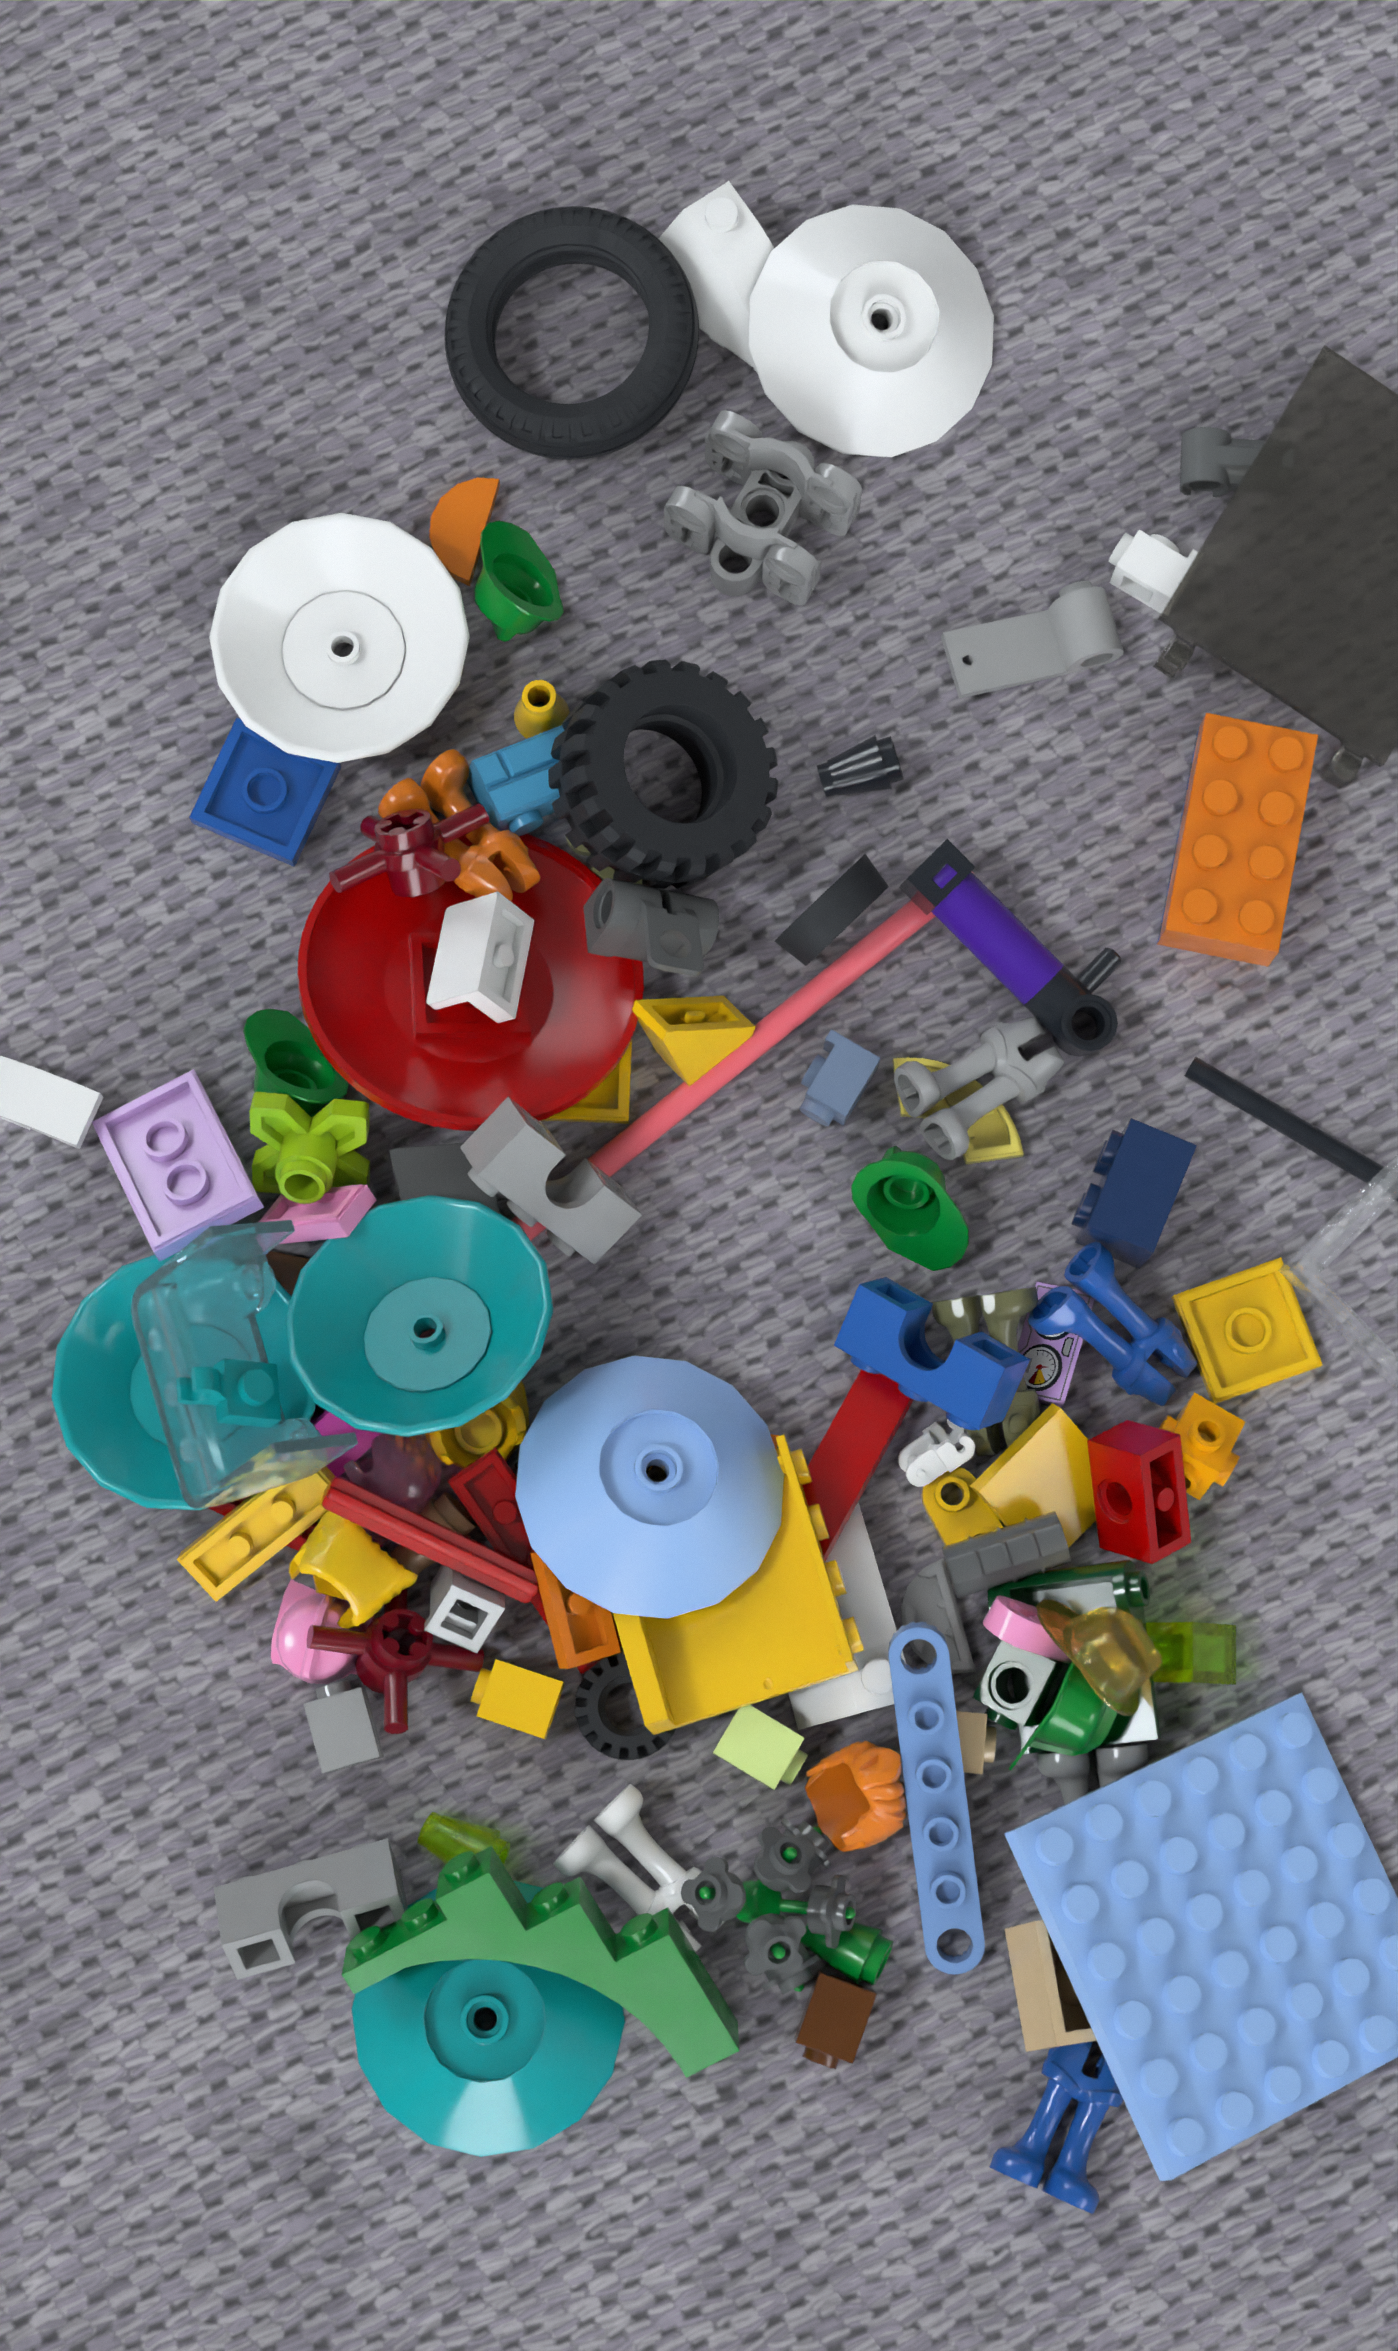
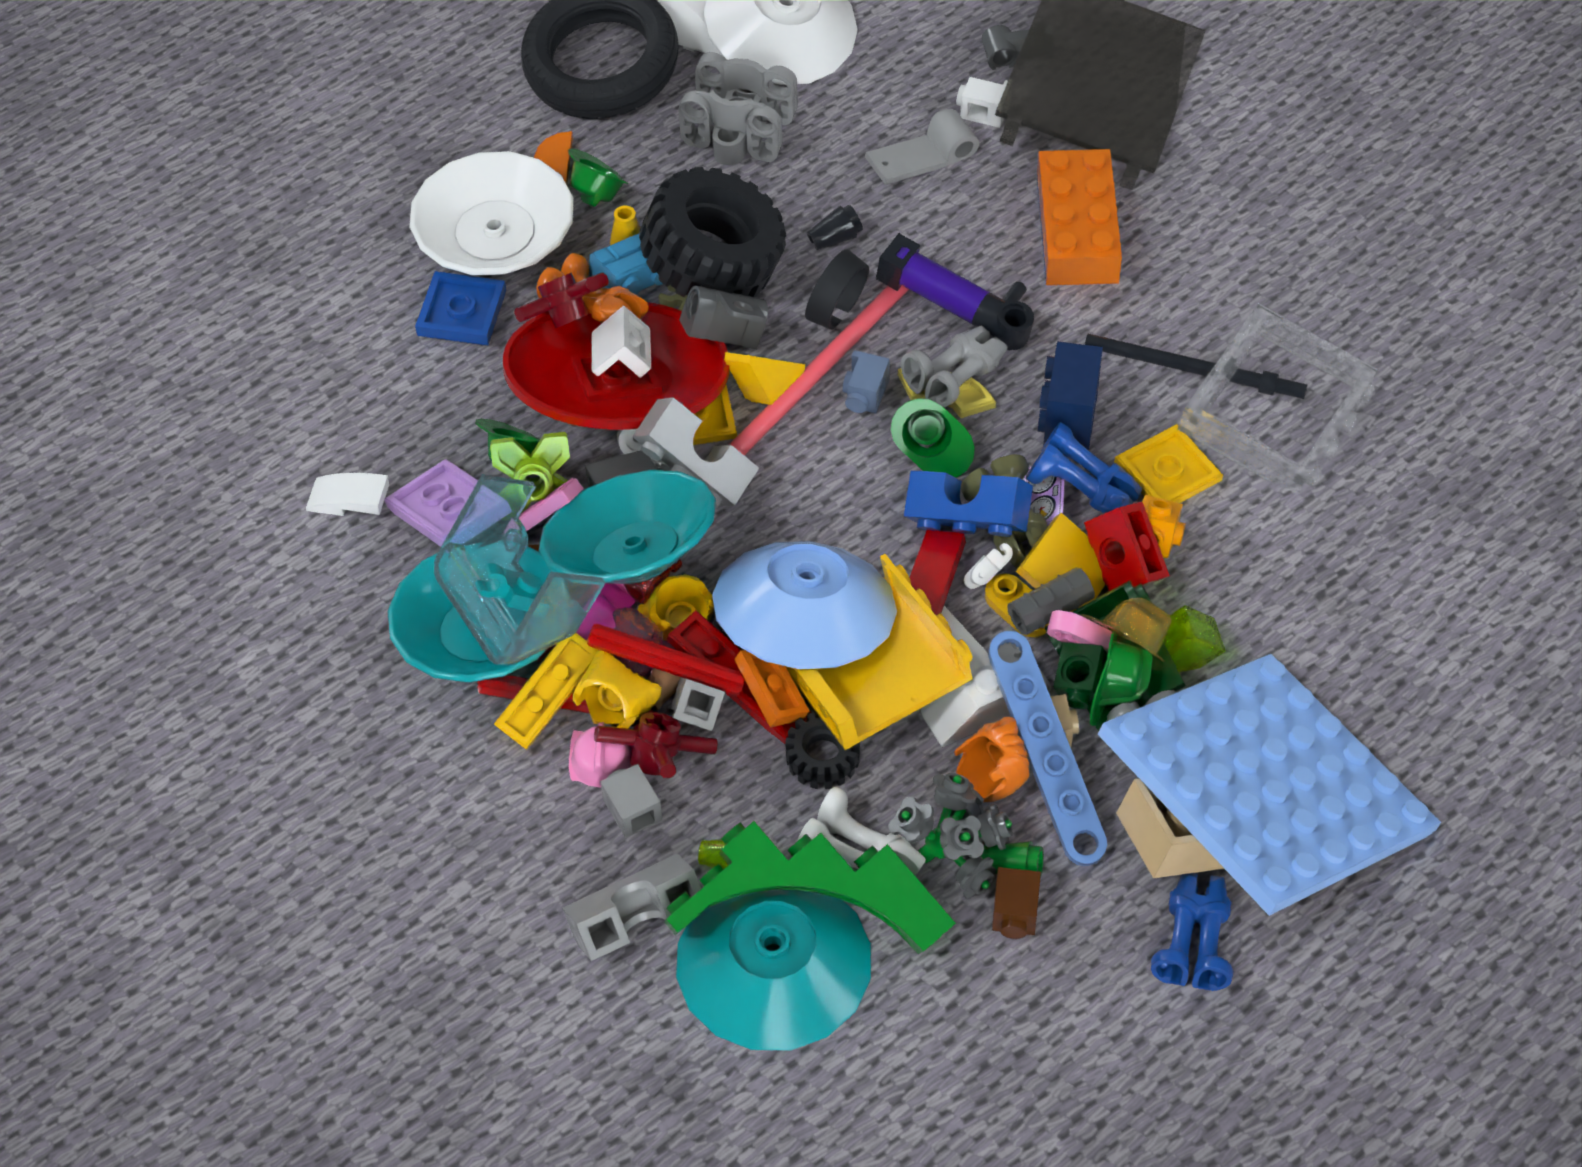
camera: 10 degrees left, 25 degrees down
(517, 1698) = (746, 758): yellow brick -> none
(761, 1747) = (919, 752): yellowish green brick -> none

